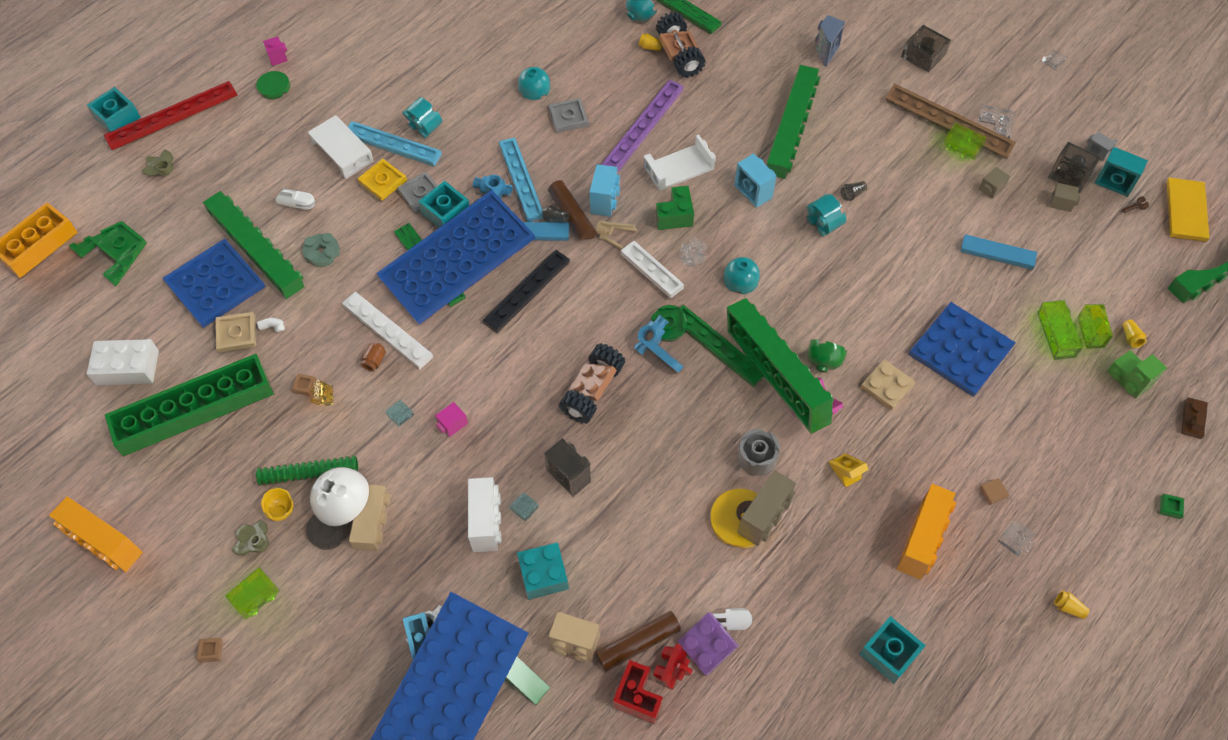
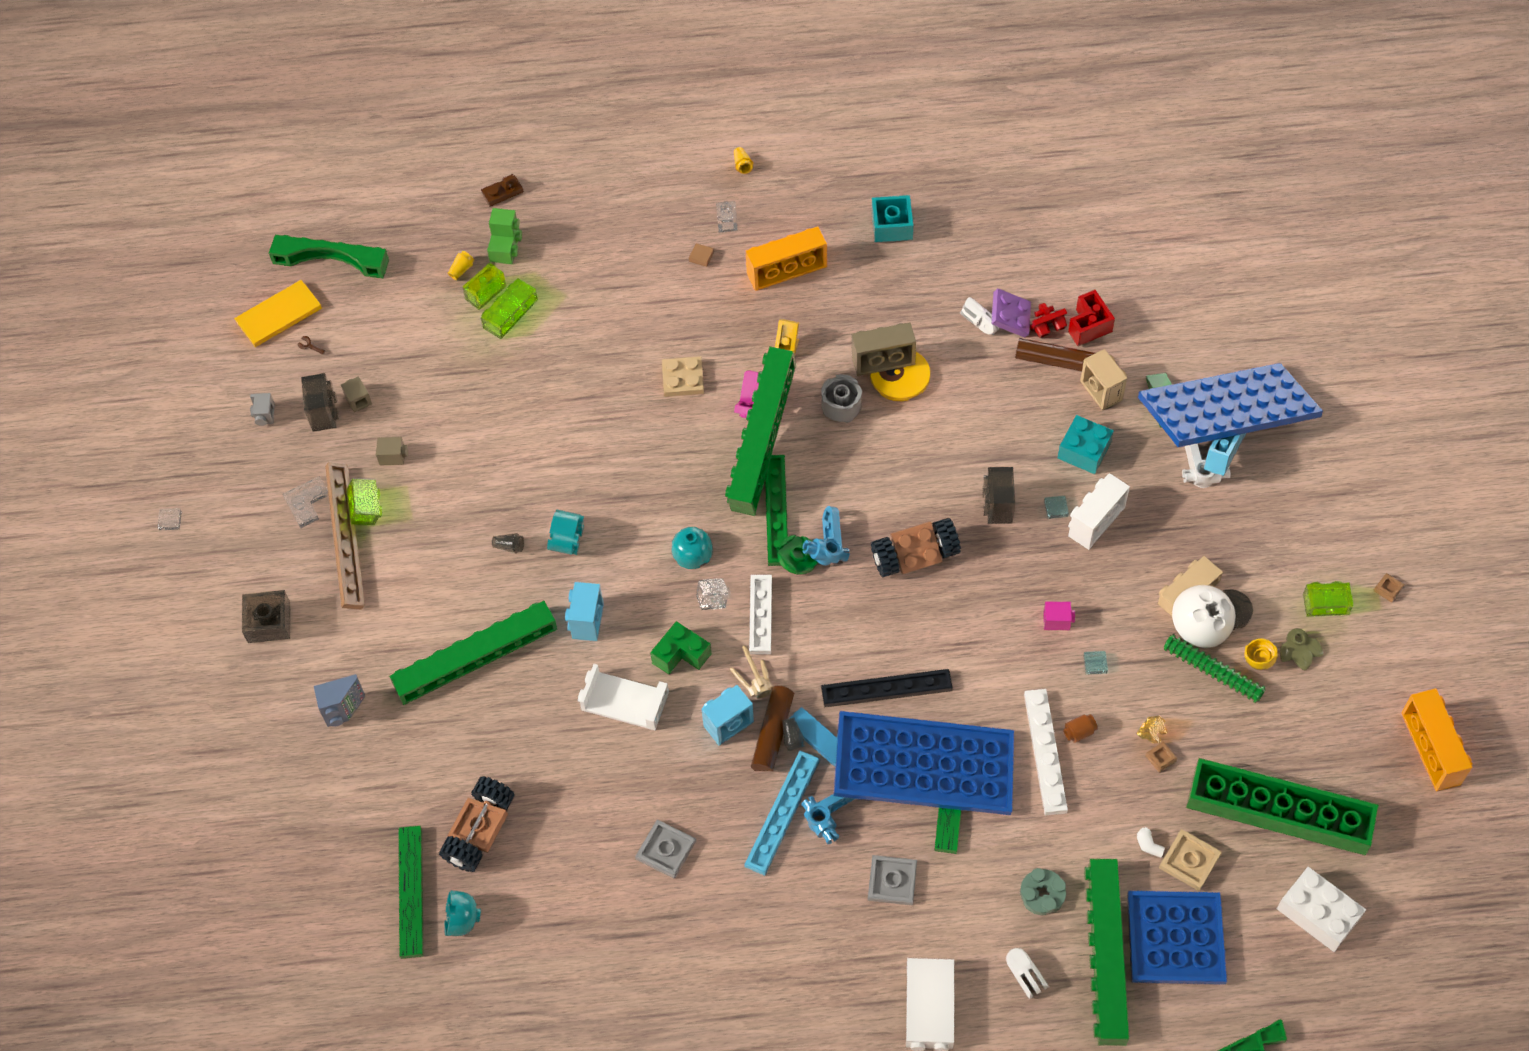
camera: 135 degrees left, 0 degrees up
(382, 179) = (919, 924): yellow plate -> none
(396, 144) = (870, 969): medium azure tile -> none
(422, 117) = (818, 958): teal brick -> none
(442, 204) = (888, 828): teal brick -> none
(533, 83) = (662, 917): teal cylinder -> none
(643, 125) = (611, 772): medium lavender tile -> none
(649, 42) = (497, 865): yellow cone -> none
(826, 355) = (706, 425): green cylinder -> none
(962, 349) = (594, 357): blue plate -> none
(999, 252) = (465, 400): dark azure tile -> none
(1121, 171) = (287, 368): teal brick -> none
(1172, 506) = (597, 160): green tile -> none

